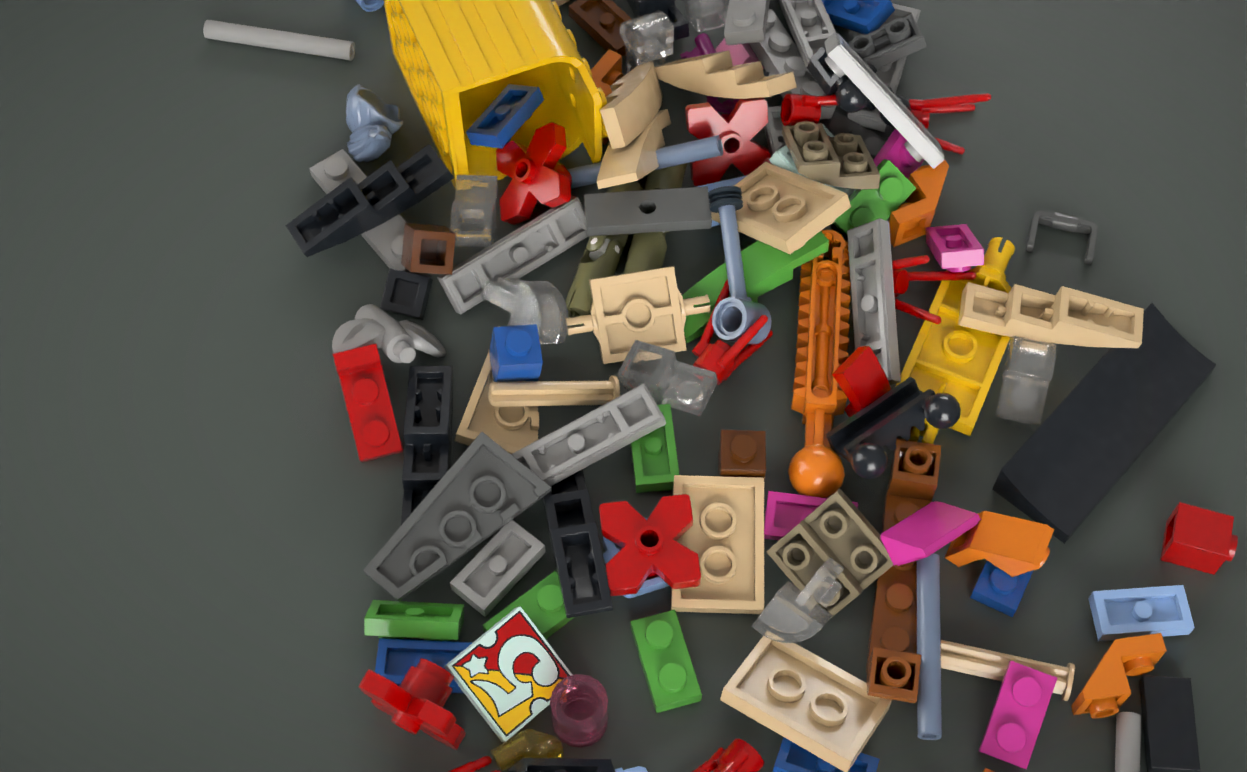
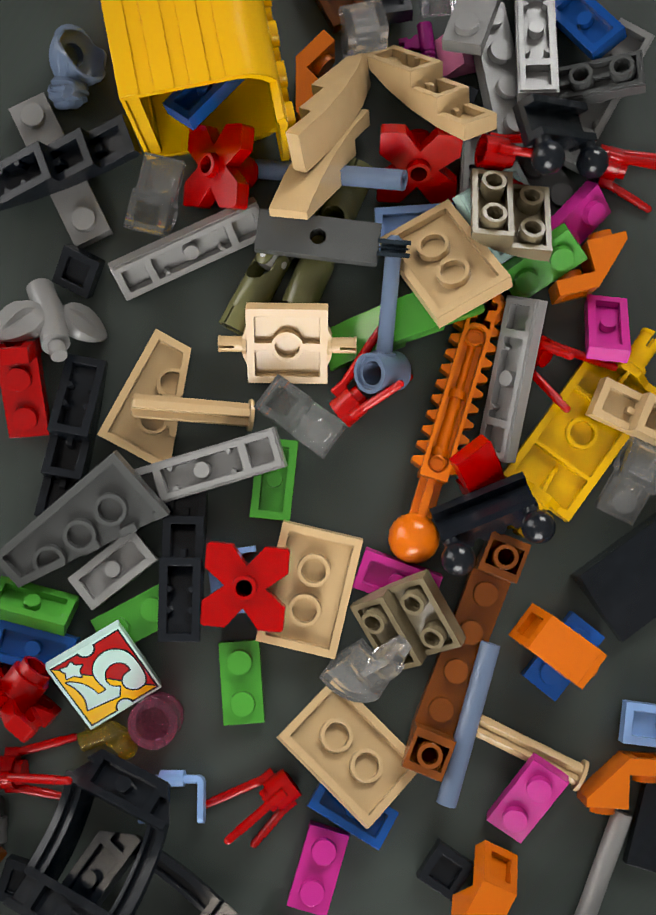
camera: 10 degrees right, 25 degrees up
(428, 249) = (100, 237): reddish brown brick -> none
(515, 353) = (161, 373): blue brick -> none
(531, 304) = (191, 316): clear brick -> none
(742, 453) = (349, 513): reddish brown brick -> none
(845, 60) = (566, 145): plate -> none
(926, 531) = (496, 626): dark pink slope -> none

